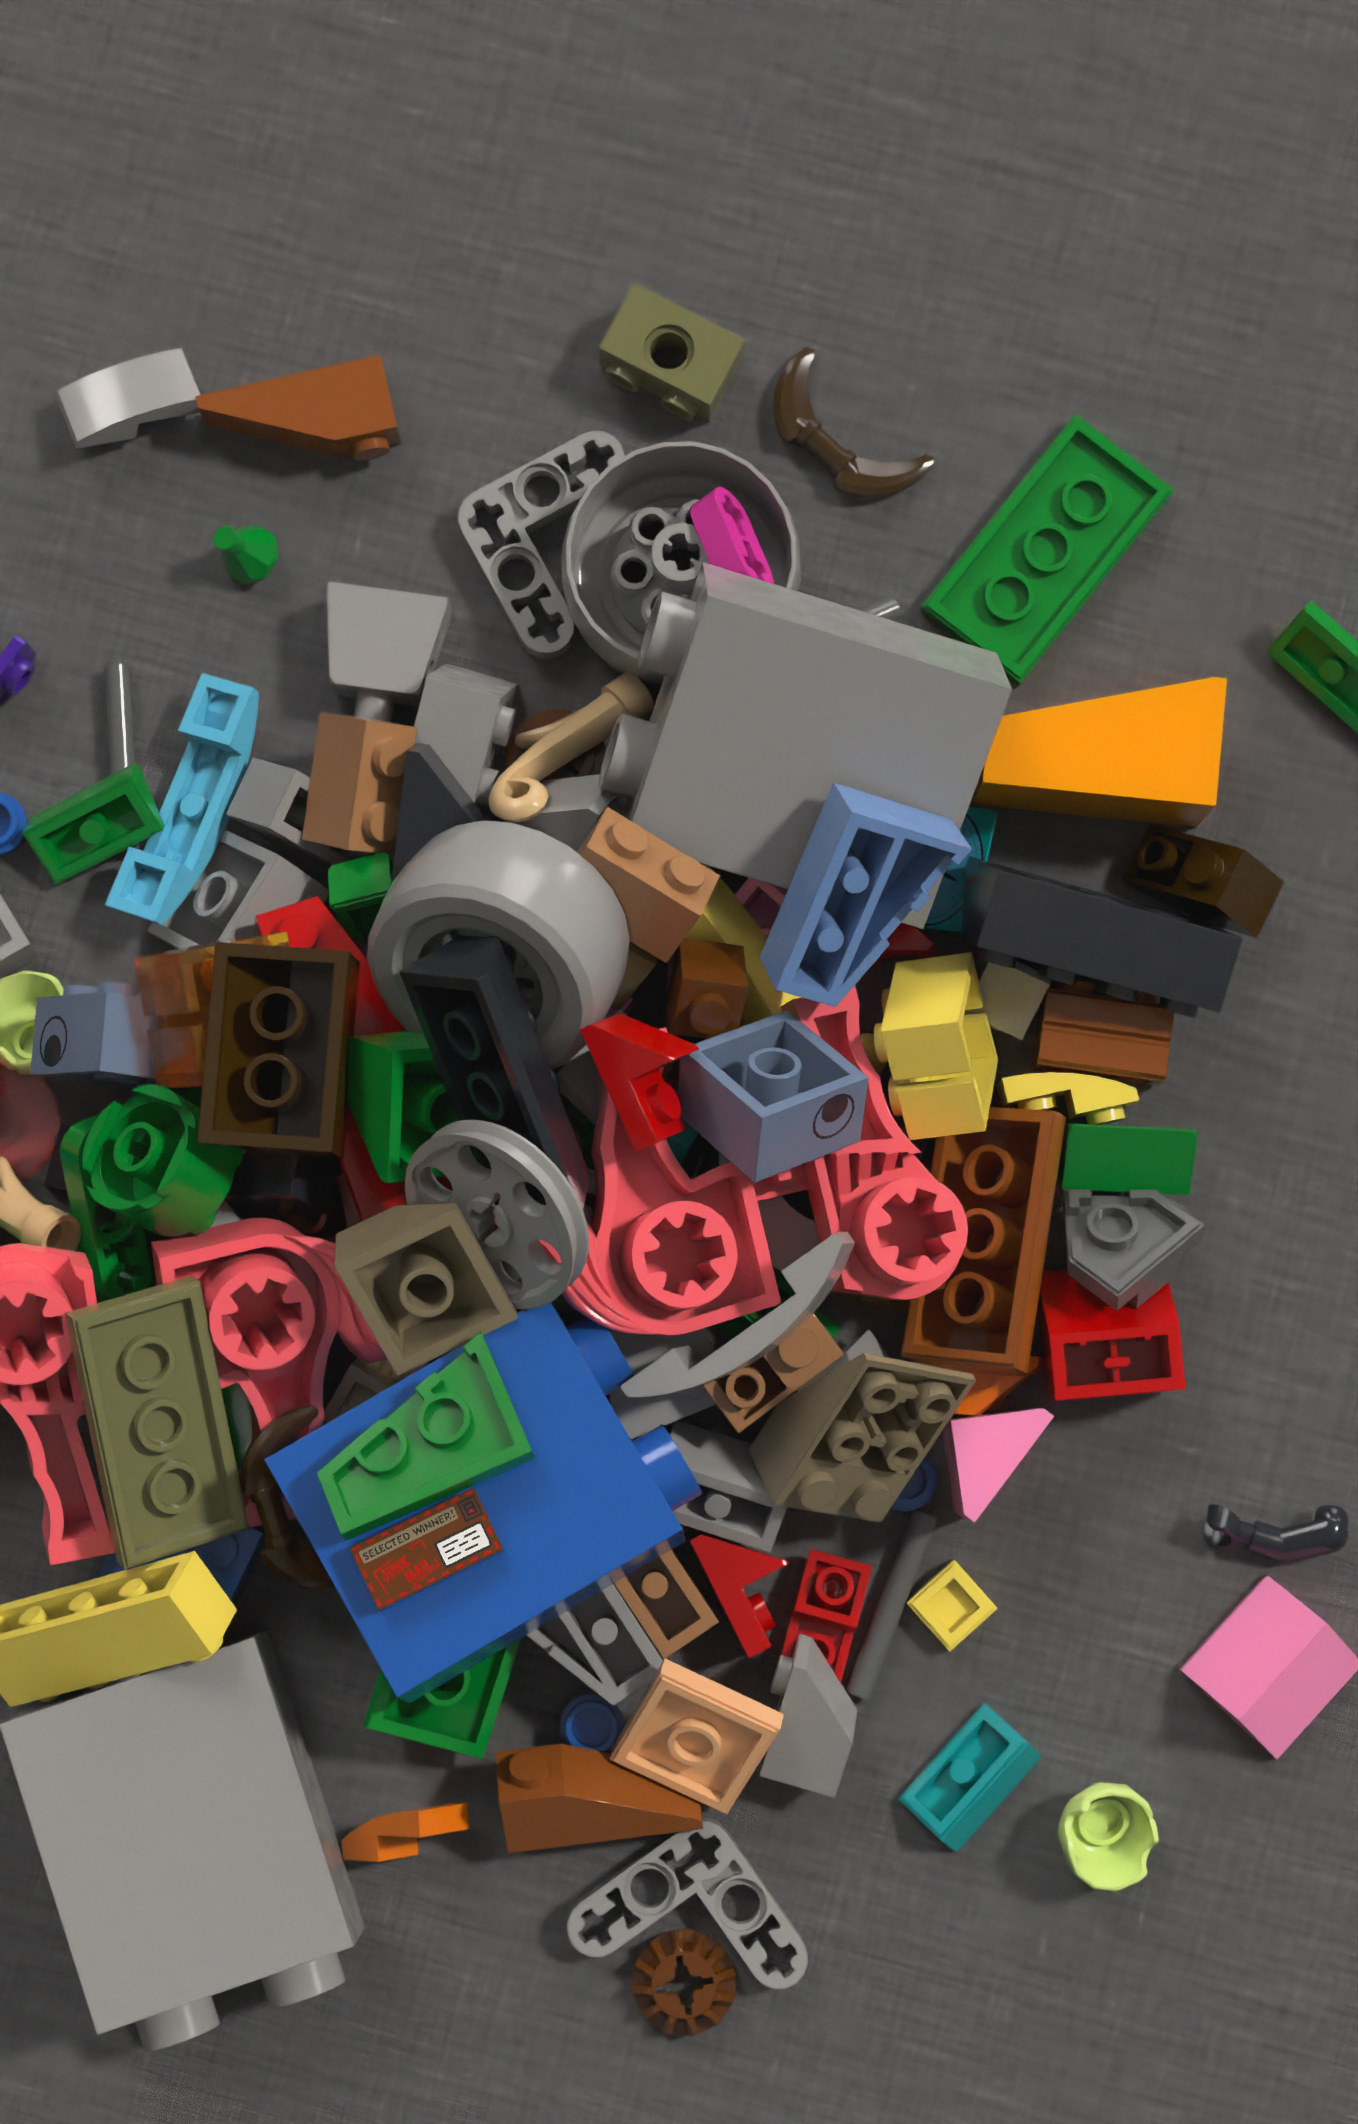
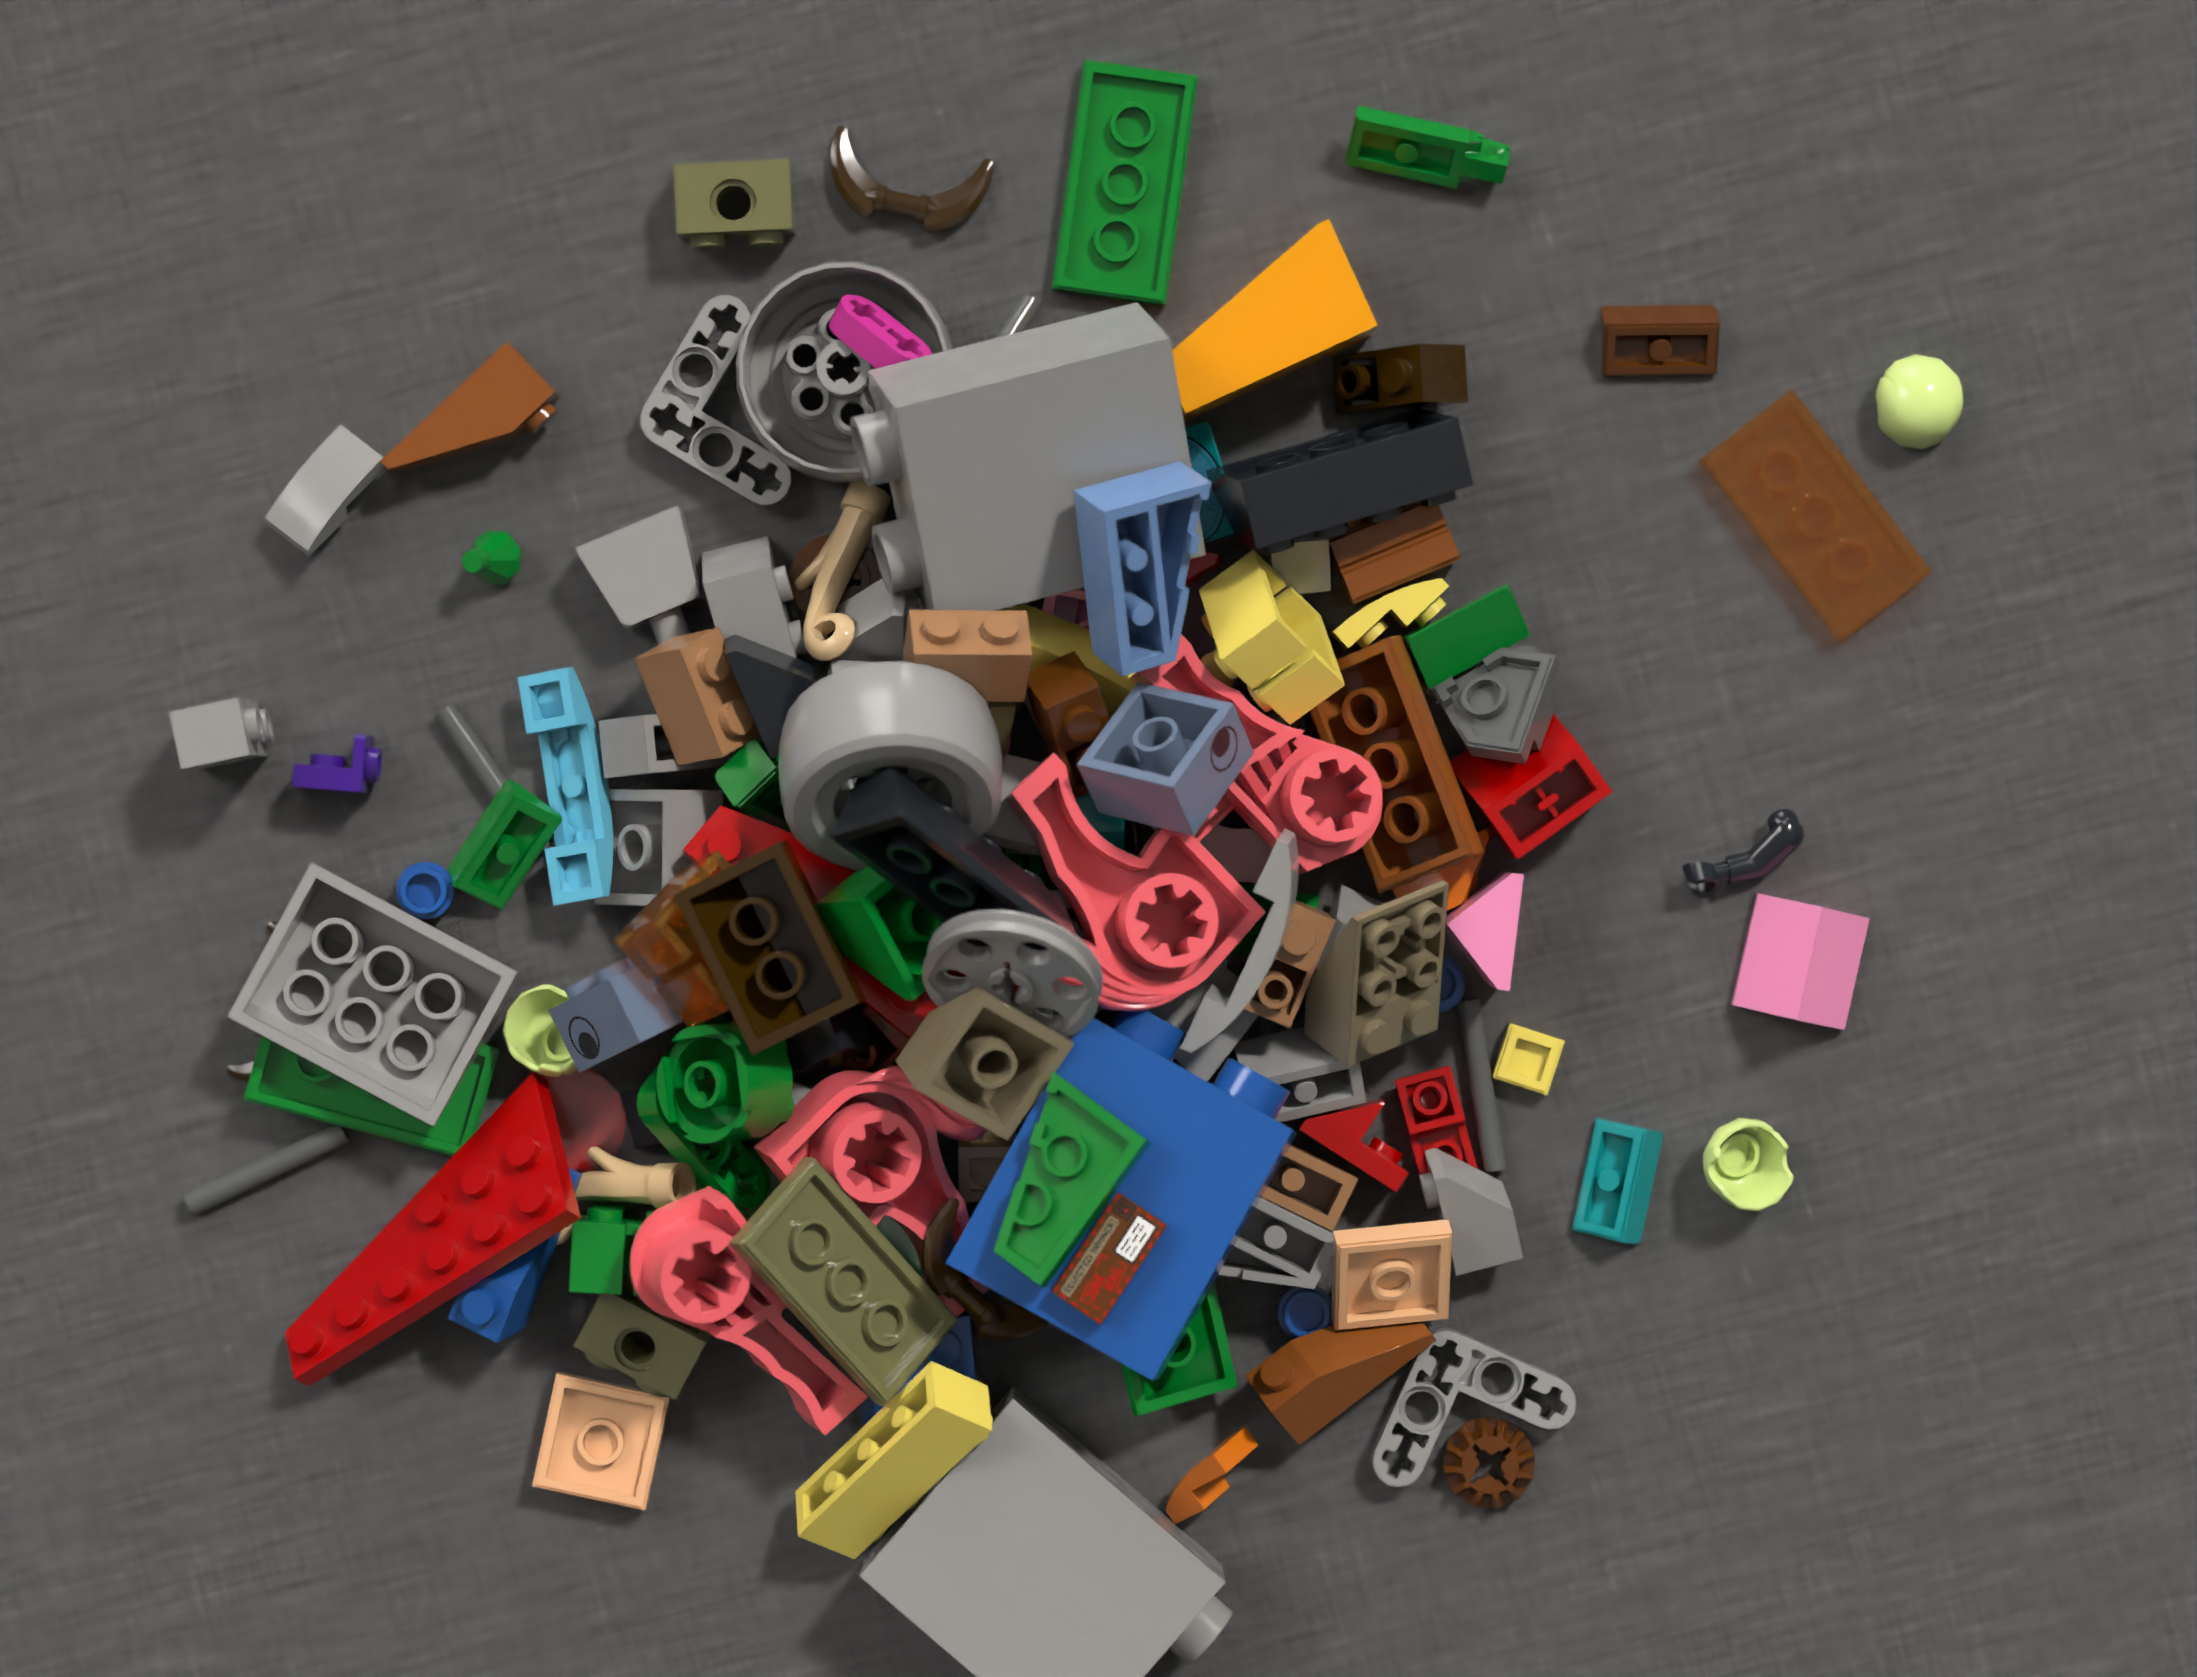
camera: 30 degrees left, 5 degrees up
(629, 1064) = (1044, 798): red slope -> none

